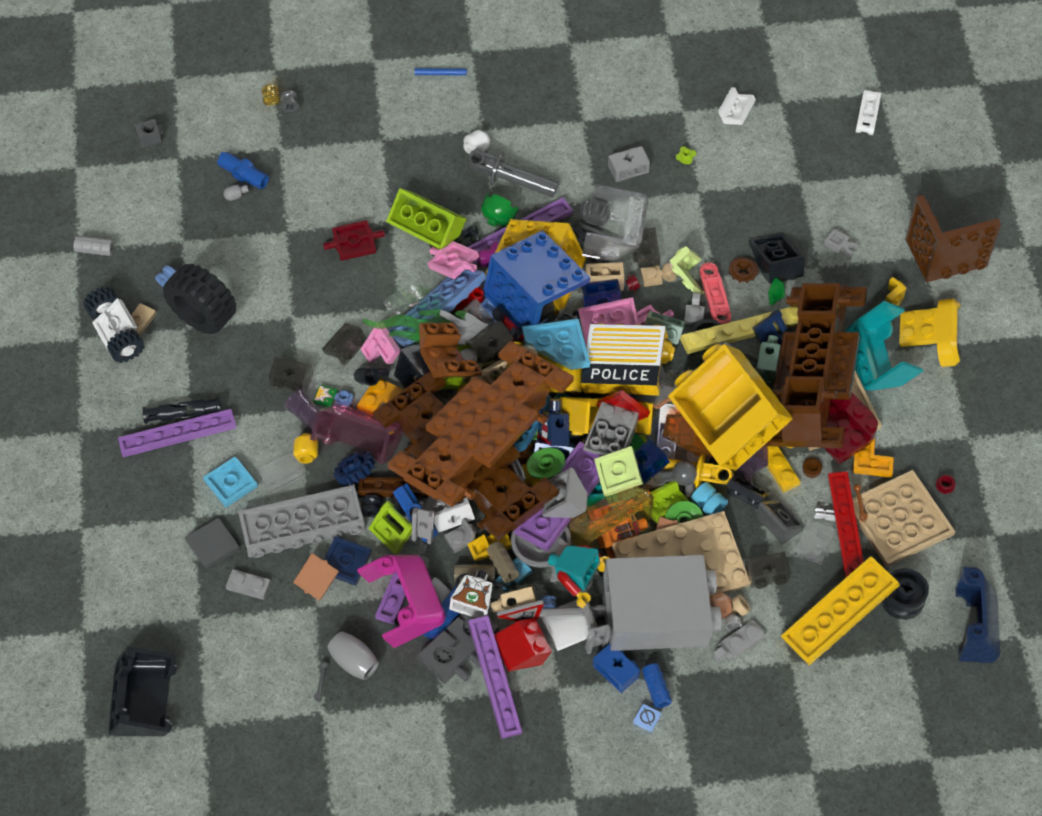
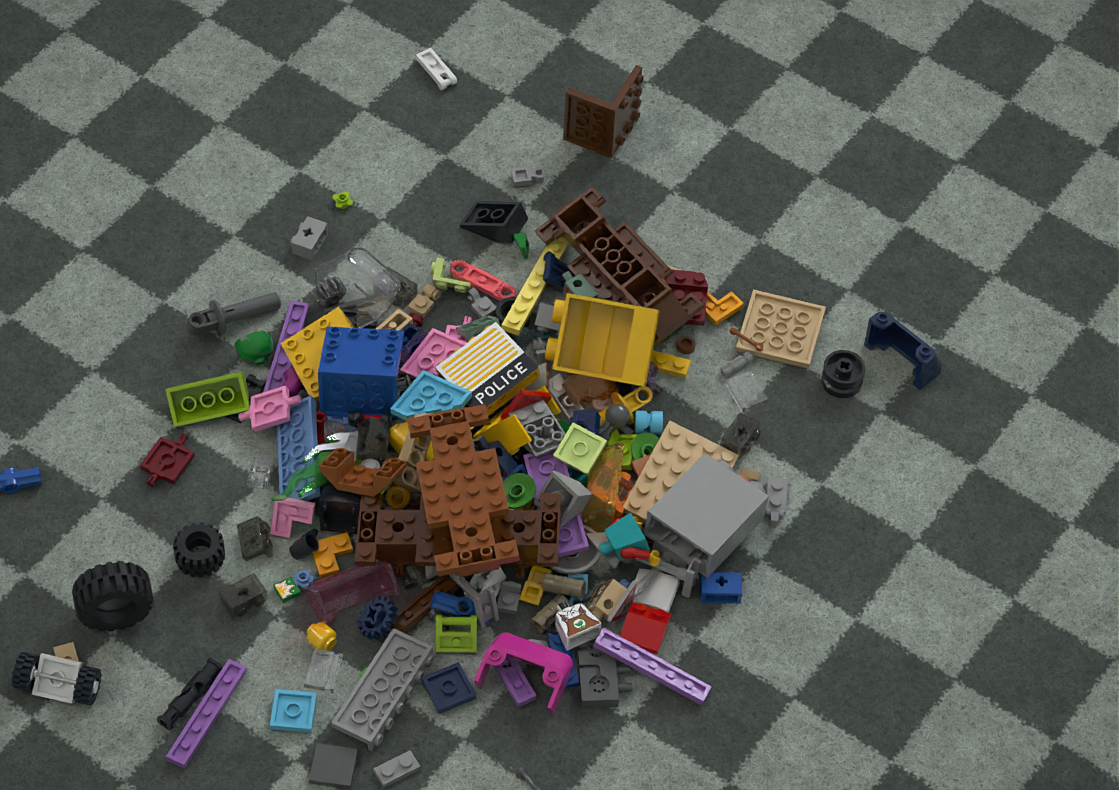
camera: 50 degrees left, 5 degrees down
(166, 273) = (51, 609): medium blue wheel -> none
(234, 192) = (24, 502): light grey cylinder -> none
(299, 330) = (199, 562): none -> black tyre
(302, 407) = (288, 610): clear purple plant -> none
(316, 576) = (442, 717): nougat piece -> none
(353, 655) = (537, 743): light grey piece -> none
(371, 505) = (420, 632): black wheel -> none
(440, 71) = (77, 283): blue bar -> none
(476, 141) = (174, 313): white head -> none
(647, 718) = (777, 602): light blue tile -> none
(656, 686) = (760, 575): blue axle -> none
(736, 107) = (339, 136): white bracket -> none
(743, 263) = (488, 248): reddish brown gear -> none
(746, 491) = (668, 396): black bracket -> none
(779, 520) = (708, 398): dark grey slope -> none
(840, 610) = (819, 419): yellow plate -> none
(845, 521) = (759, 363): red plate -> none
(872, 357) = (621, 211): teal windscreen -> none
(897, 292) = (603, 176): yellow bracket -> none
(933, 327) = (656, 183): yellow piece -> none
(945, 479) = (782, 278): dark red plate -> none

